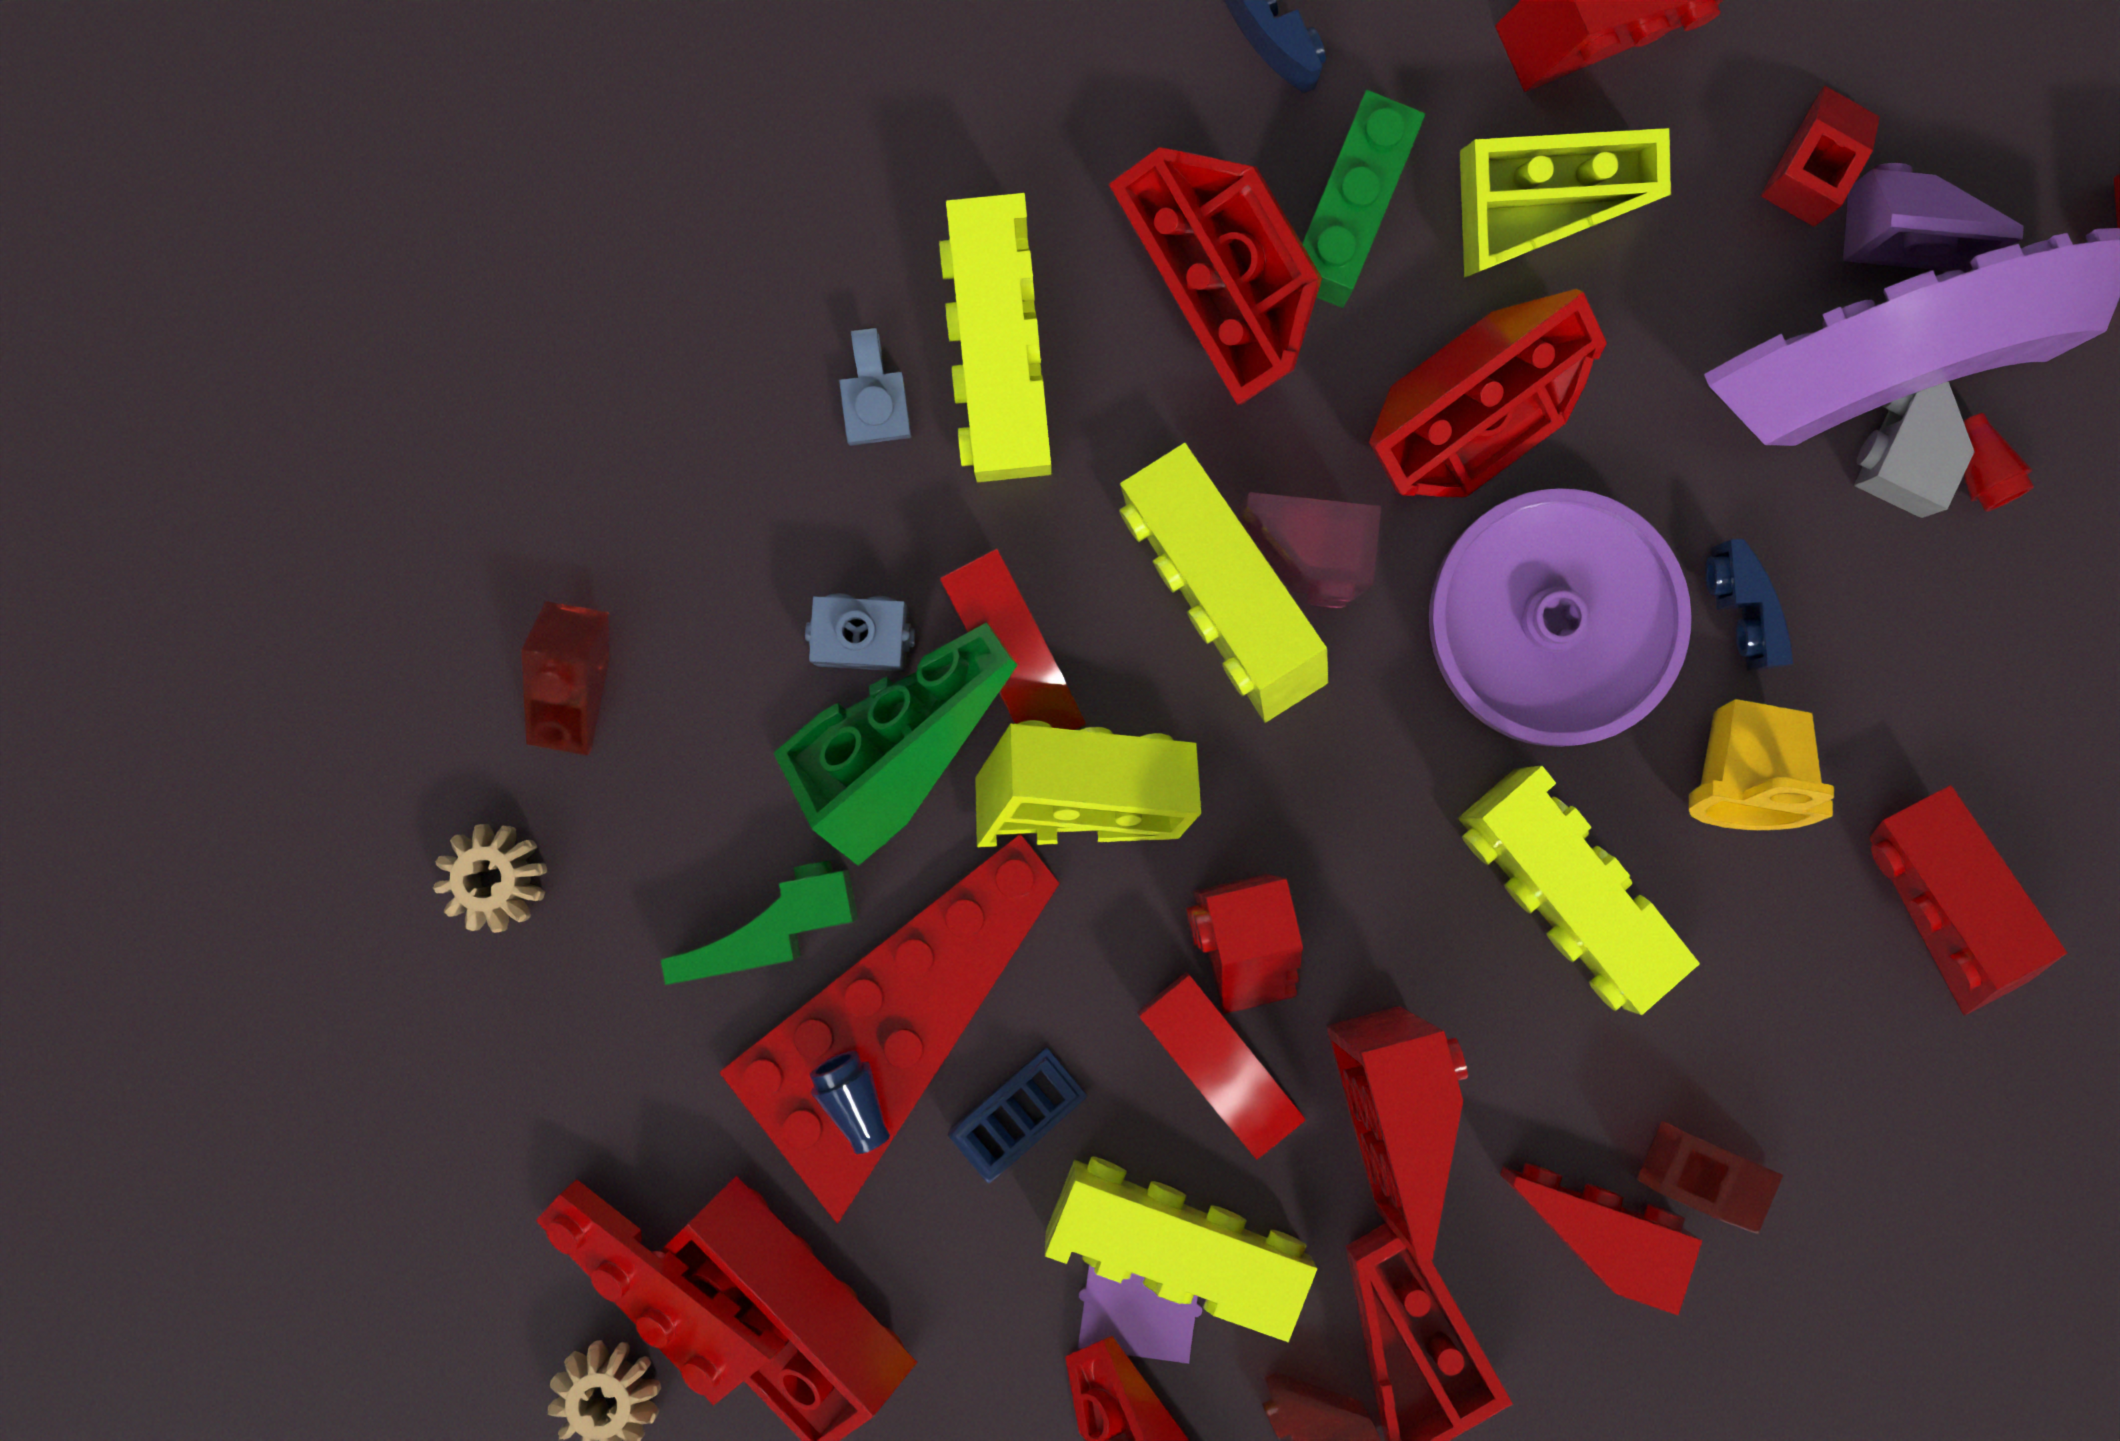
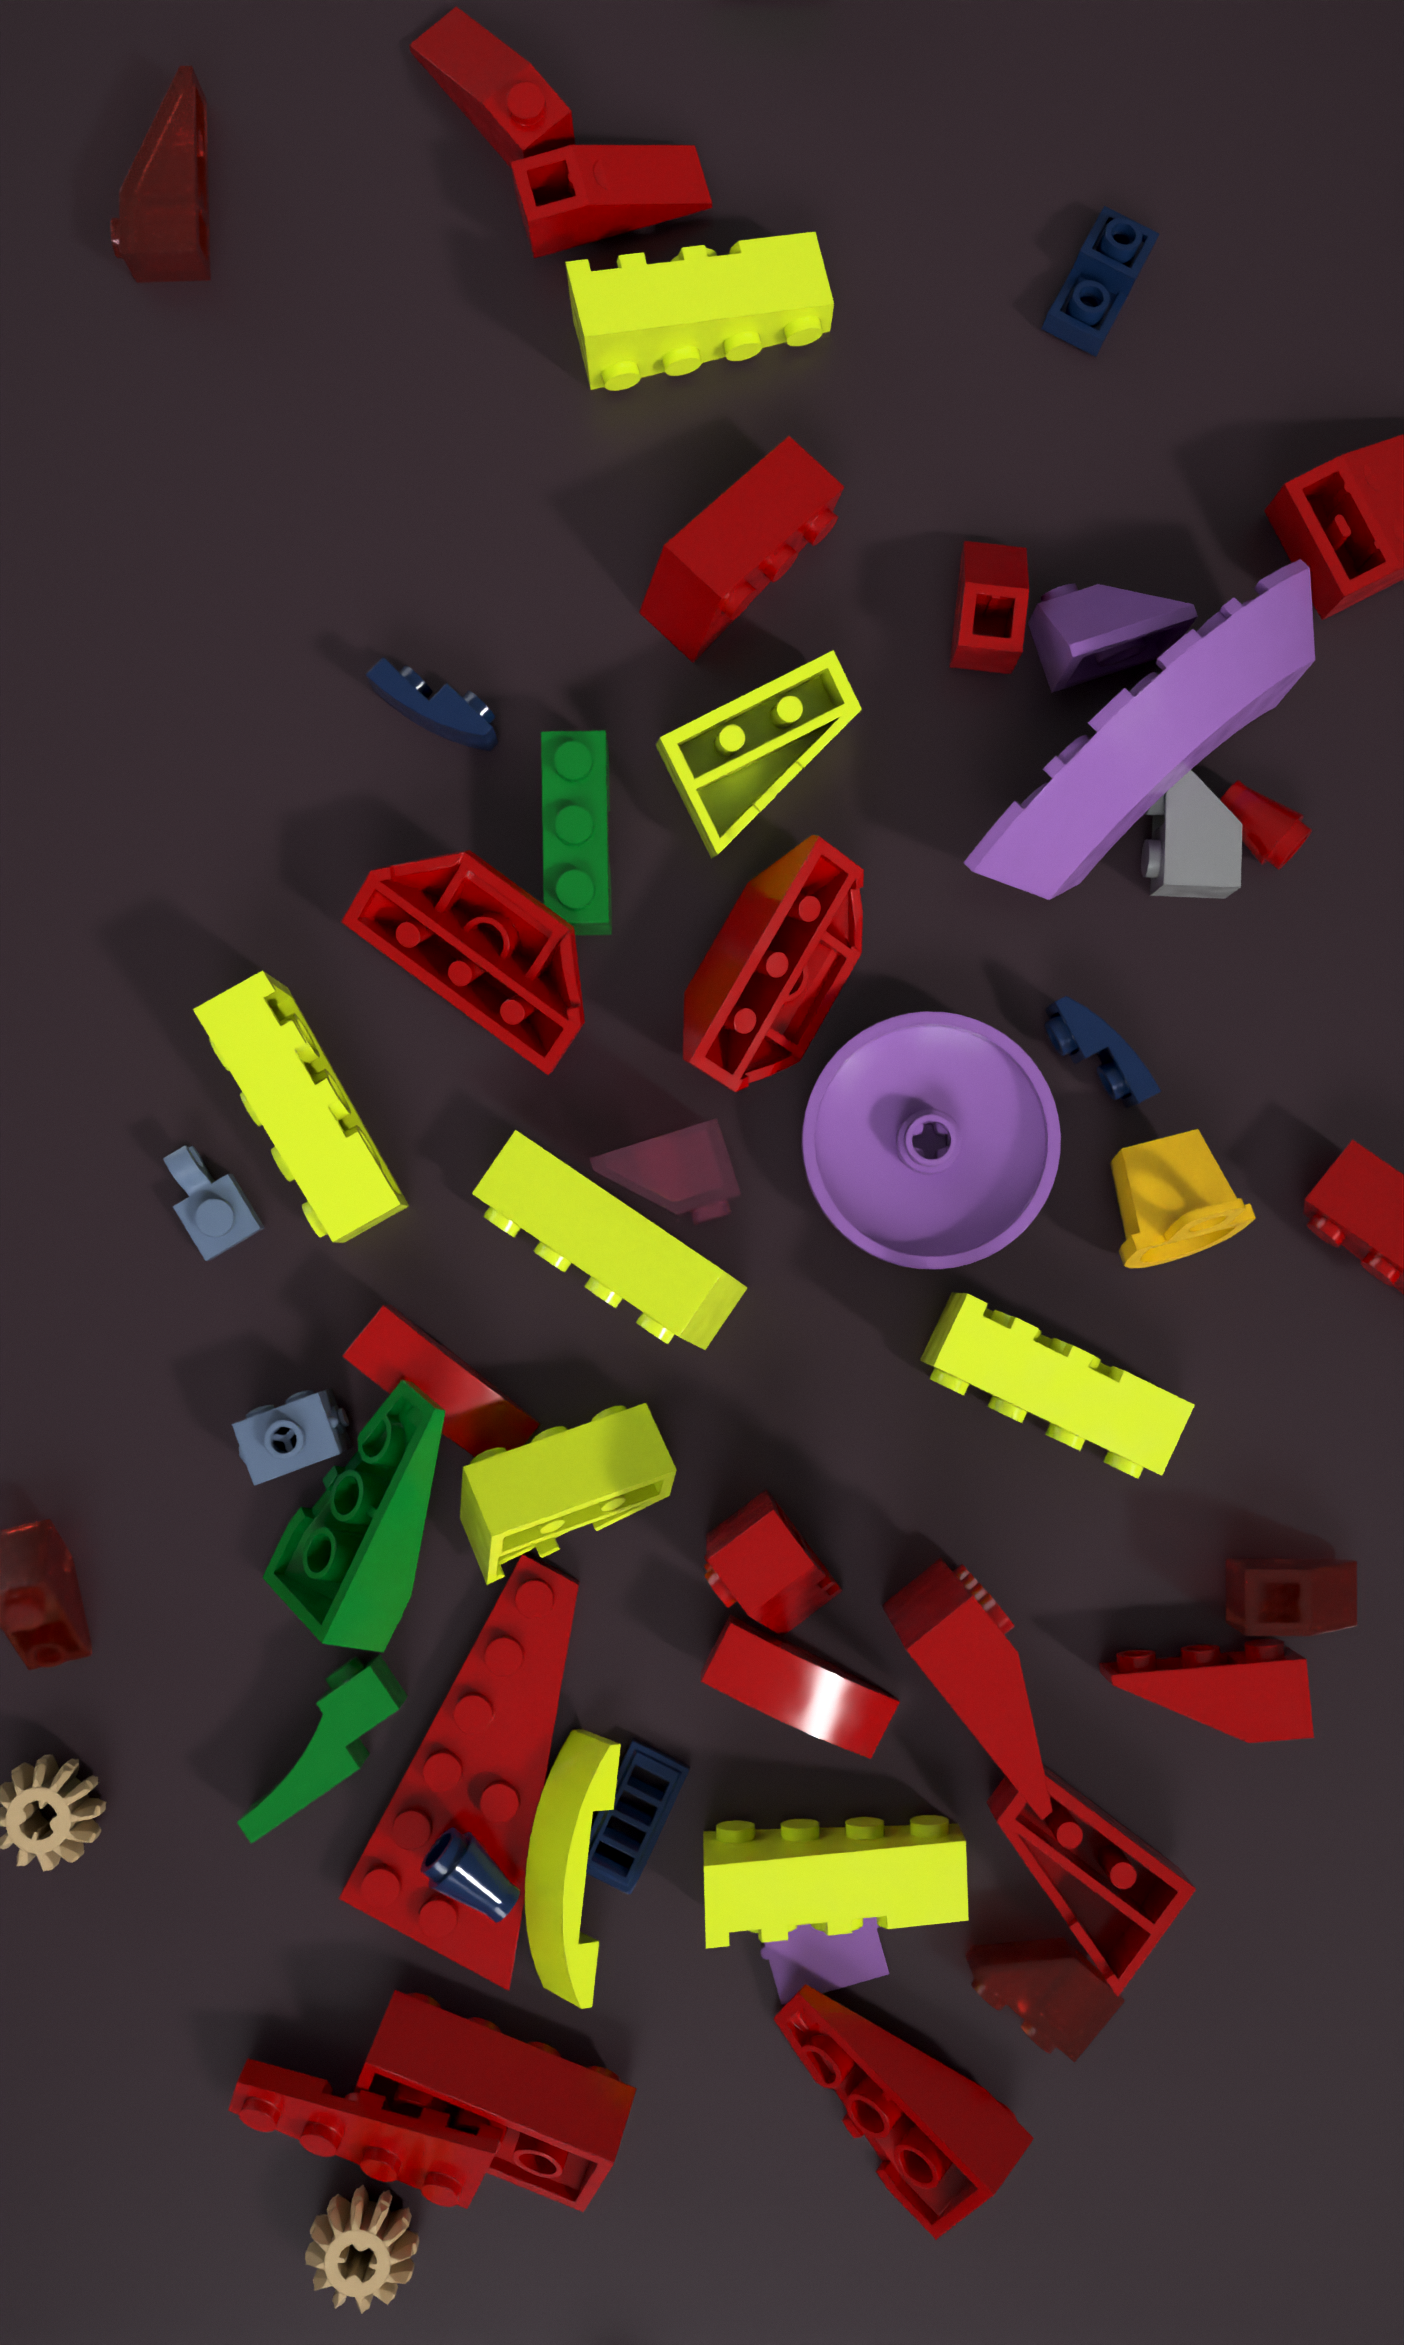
camera: 25 degrees left, 0 degrees up
(932, 1129) = (556, 1864): none -> neon yellow slope

